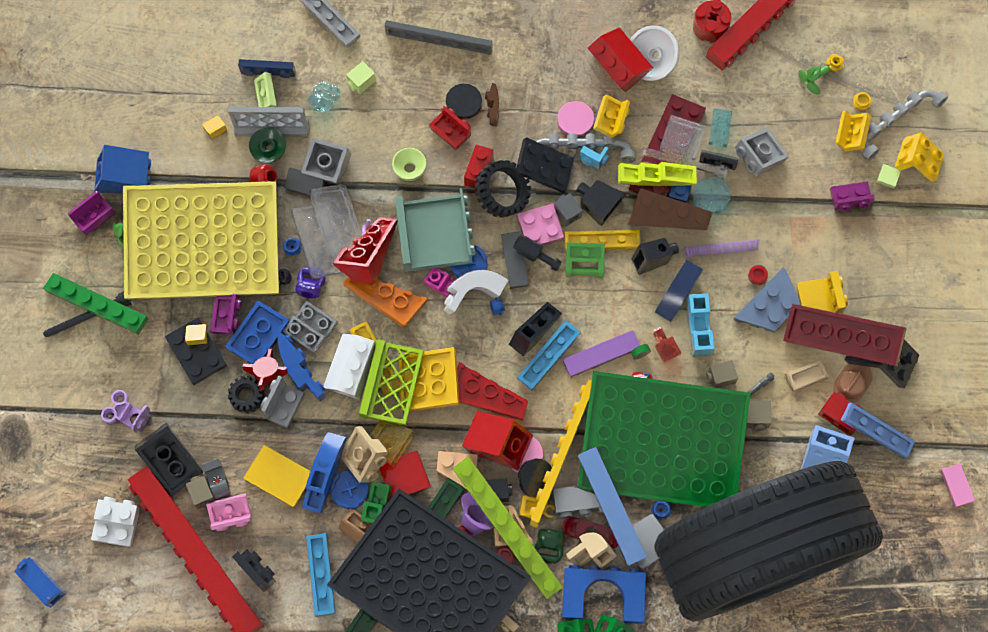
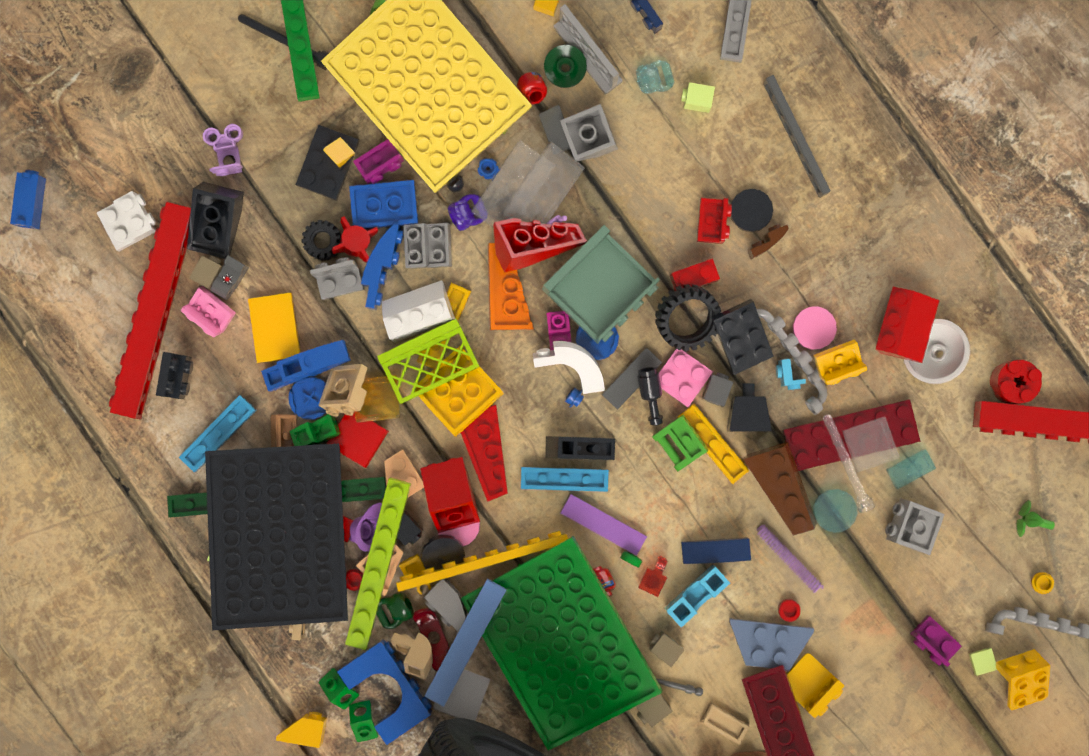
camera: 55 degrees right, 15 degrees up
(265, 90) = (615, 21): yellowish green plate -> none
(409, 156) = (650, 200): yellowish green piece -> none
(653, 255) = (733, 504): black torso -> none
(657, 175) = (814, 448): neon yellow slope -> none
(666, 510) = (499, 690): blue plate -> none
(680, 193) = (816, 479): blue plate -> none
(714, 158) = (877, 491): black slope -> none
(835, 67) = (1058, 529): yellow plate -> none
(853, 131) = (1003, 597): yellow bracket -> none

